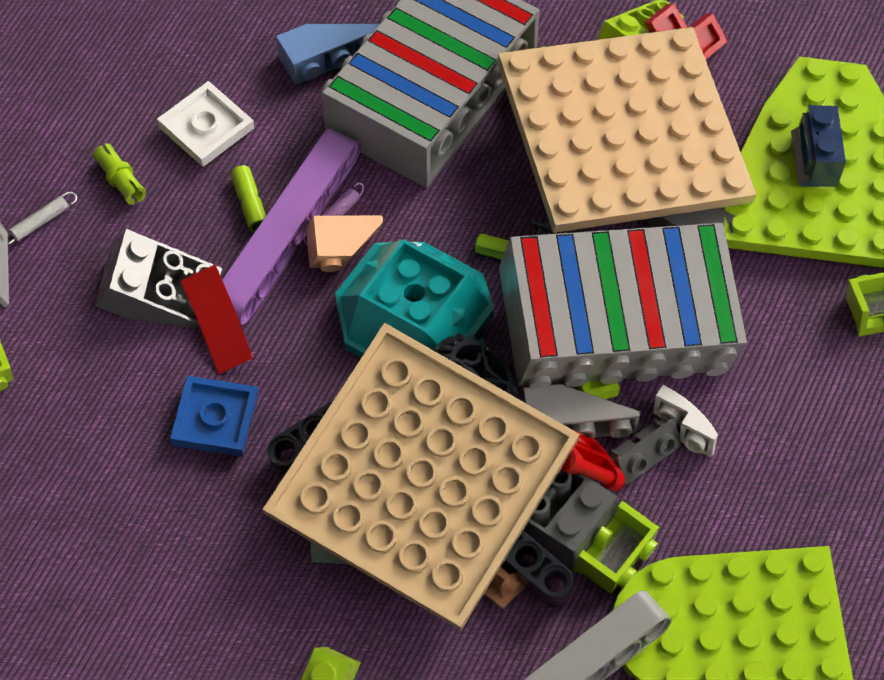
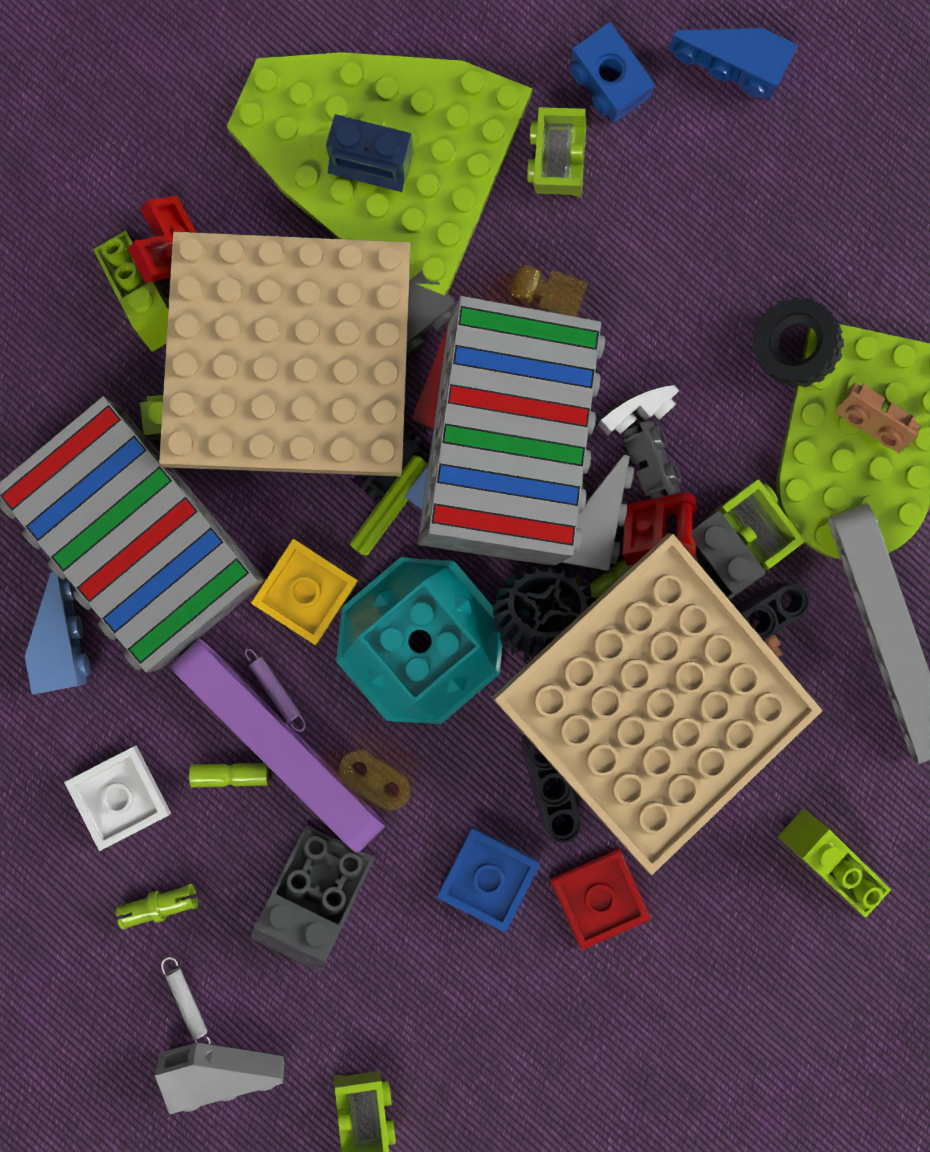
camera: 75 degrees left, 30 degrees up
(217, 319) = (378, 850): red sticker -> none
(221, 516) = (600, 898): none -> red tile
(278, 308) = (373, 782): none -> clear yellow plate
(337, 239) = (319, 696): light nougat slope -> none
(427, 211) = (304, 592): none -> yellow plate
(761, 599) = (890, 427): none -> nougat hinge
(763, 327) = (559, 295): none -> clear yellow plate
(793, 549) = (781, 318): none -> black tyre

